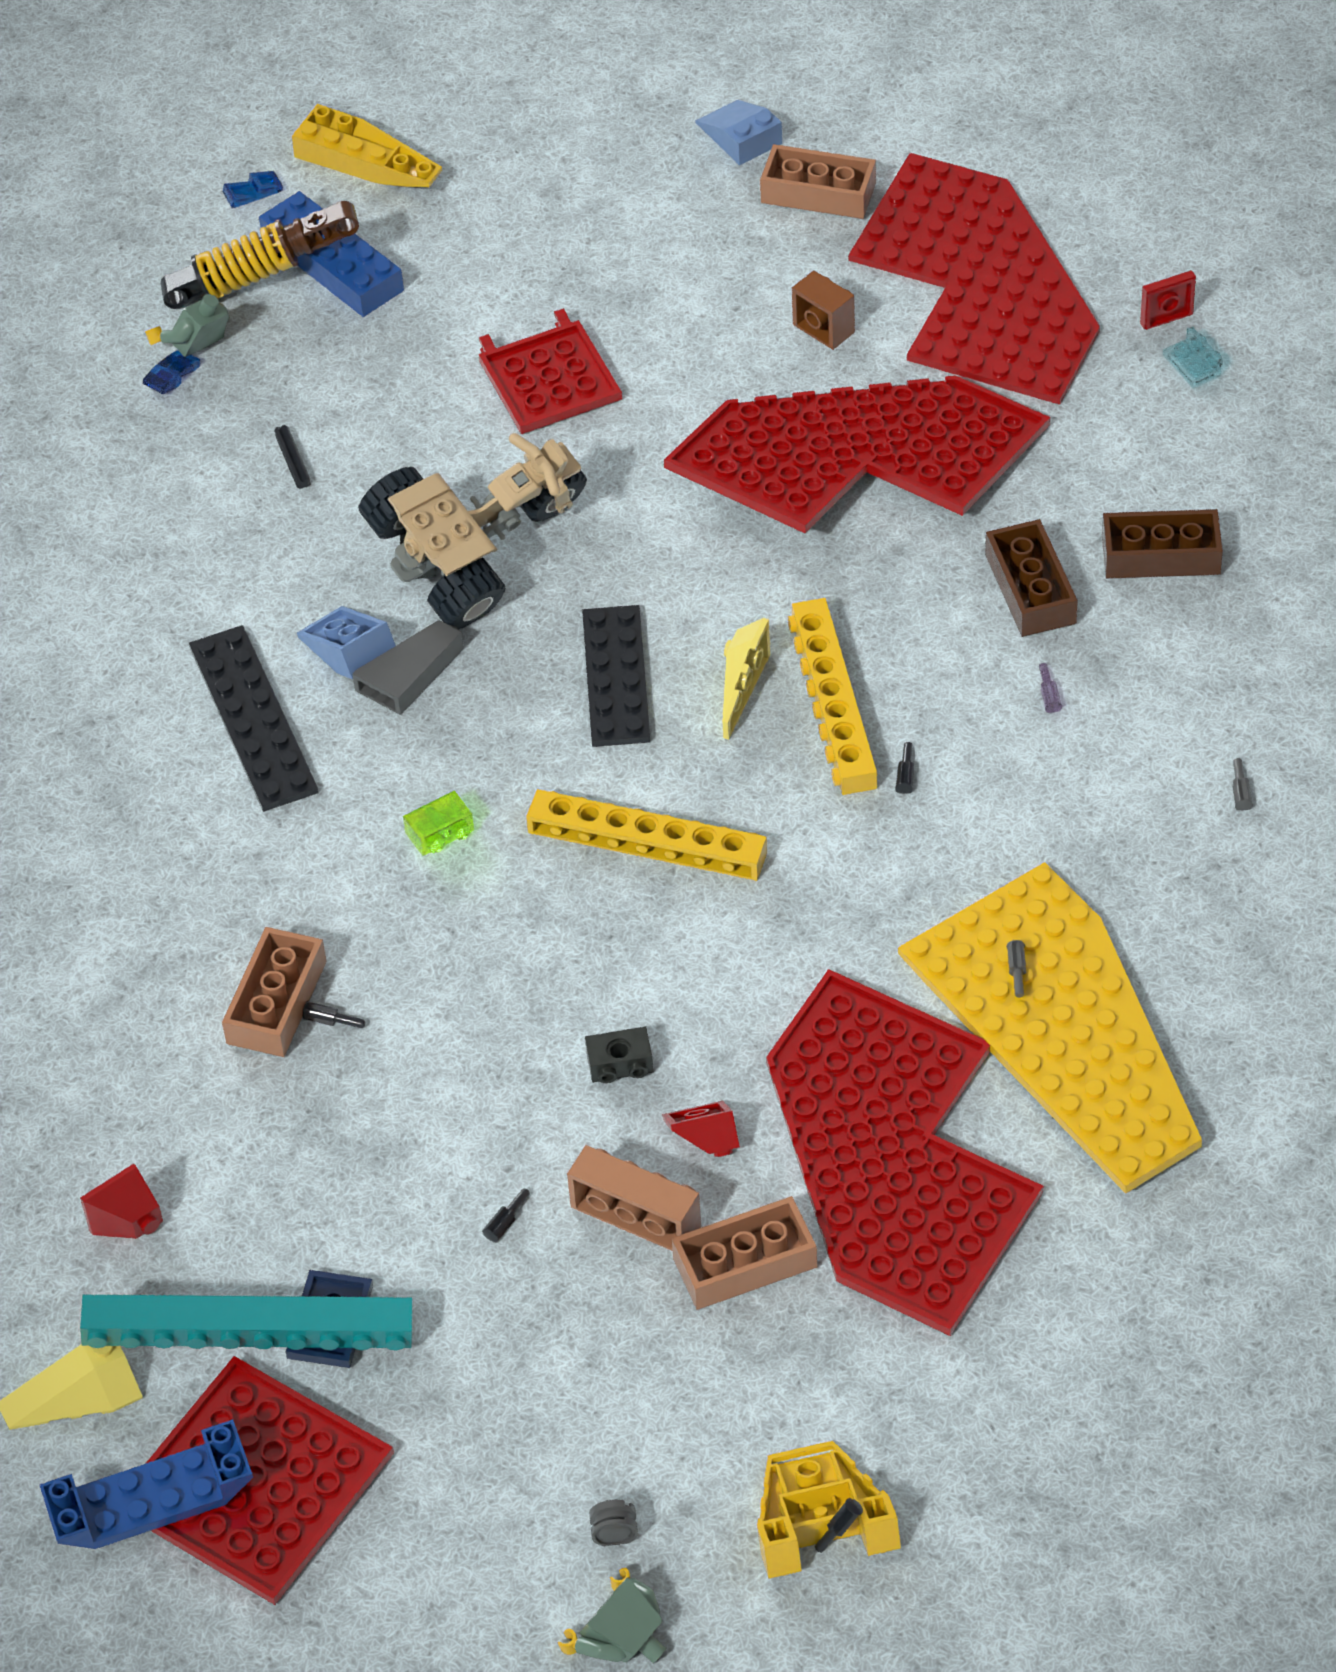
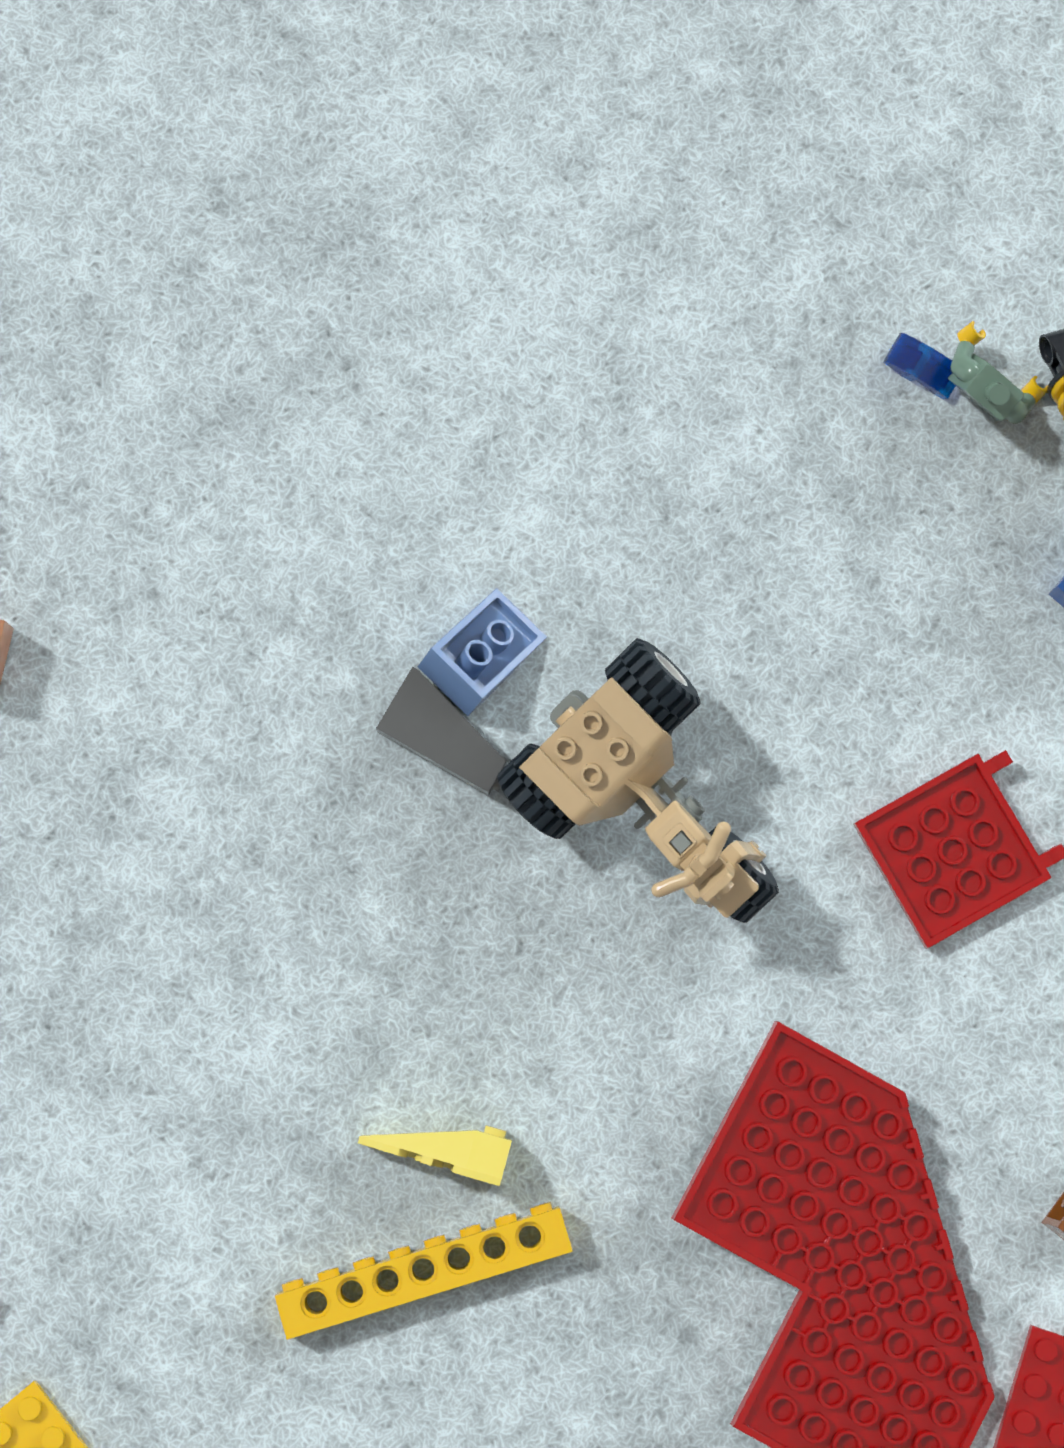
camera: 75 degrees right, 30 degrees up
(253, 718) = (360, 555): black plate -> none
(292, 456) = (790, 539): black axle -> none
(438, 823) = (196, 802): clear neon green brick -> none
(616, 676) = (451, 990): black plate -> none
(647, 834) = (153, 1183): yellow brick -> none
(905, 771) = (314, 1371): black axle -> none

